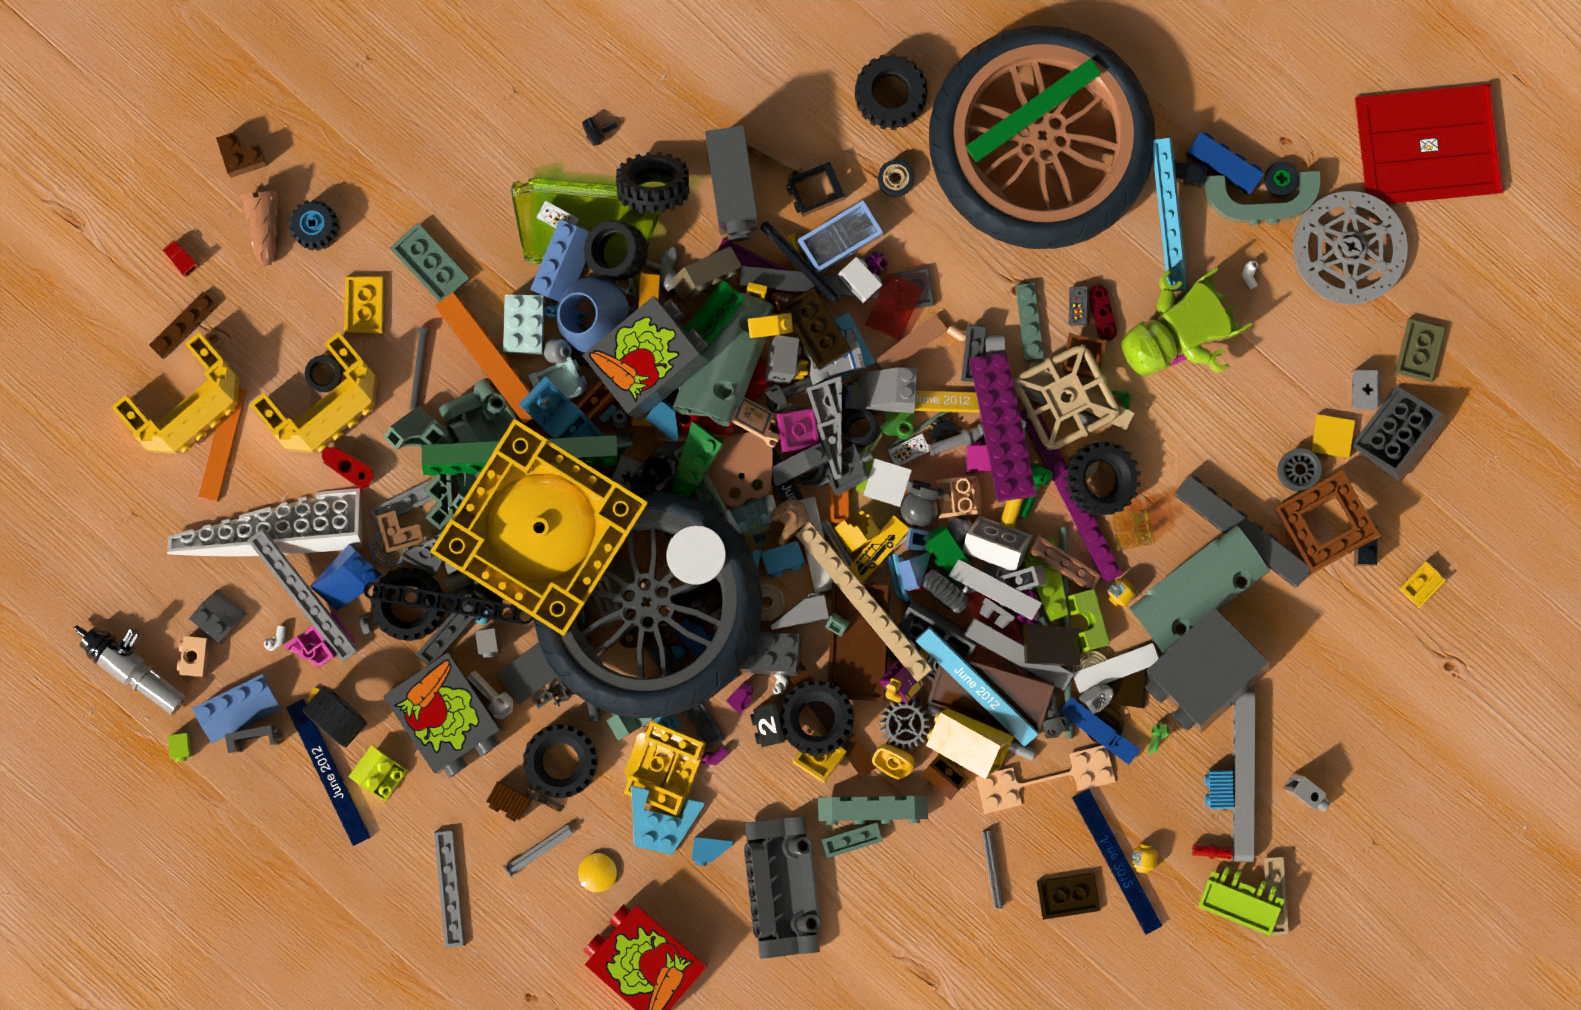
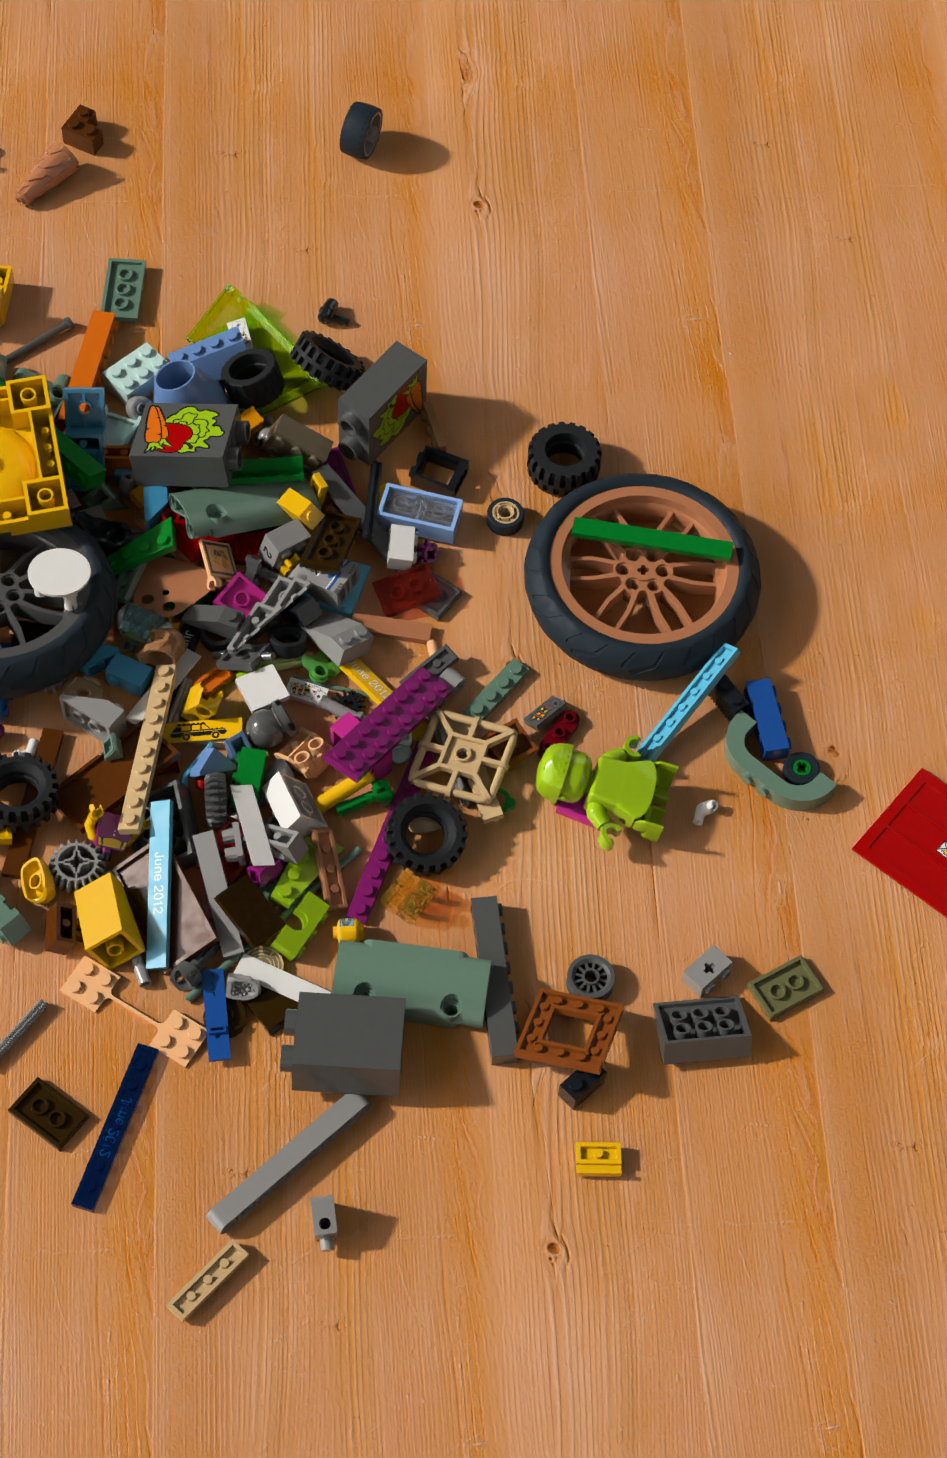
camera: 45 degrees right, 25 degrees down
(314, 225) = (78, 205): black wheel -> none
(364, 304) = (51, 278): yellow tile -> none
(775, 654) = (41, 722): dark grey brick -> none
(1144, 858) = (138, 1143): yellow head -> none
(1159, 732) = (259, 1061): bright green plate -> none
(1211, 851) = (197, 1192): red pin -> none
(1219, 789) = (257, 1150): dark azure brick -> none
(1241, 904) = (171, 1252): lime hinge -> none
(1332, 436) = (644, 982): yellow tile -> none
(1357, 200) = (806, 855): light grey piece -> none

